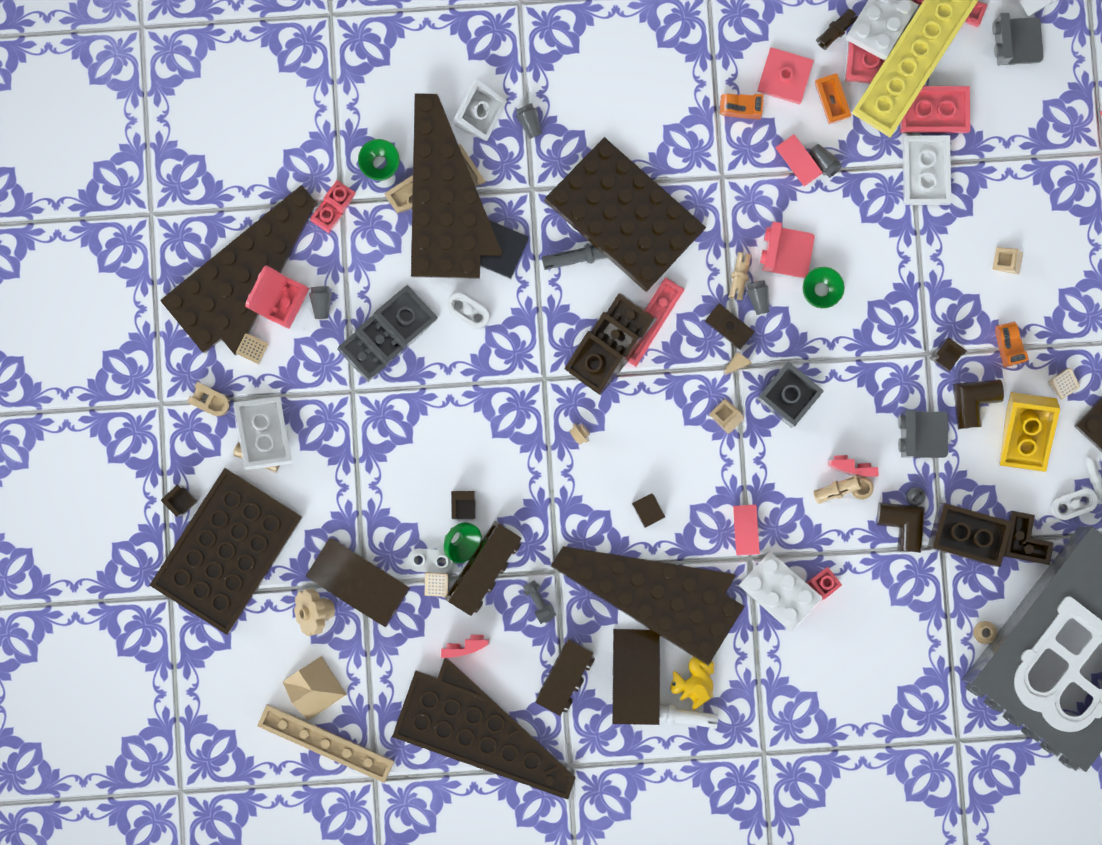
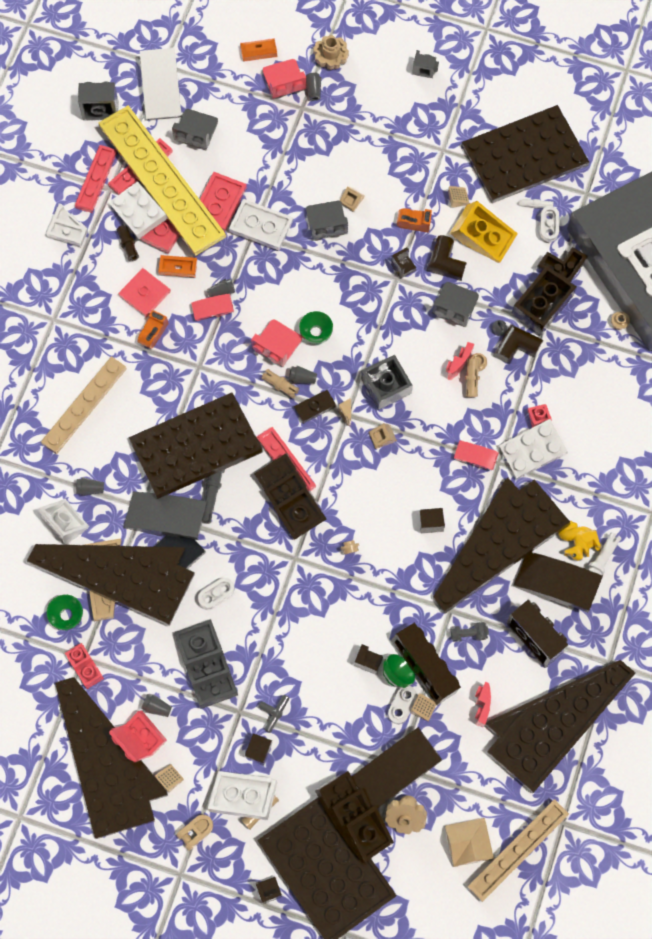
camera: 70 degrees left, 15 degrees down
(288, 558) = (354, 816): none -> dark brown slope
(318, 428) = (258, 749): none -> dark brown panel
(366, 430) = (275, 712): none -> dark grey piece
(530, 218) = (165, 516): none -> dark grey slope
(622, 71) = (83, 405): none -> tan plate
(966, 243) = (327, 219): none -> dark grey bracket

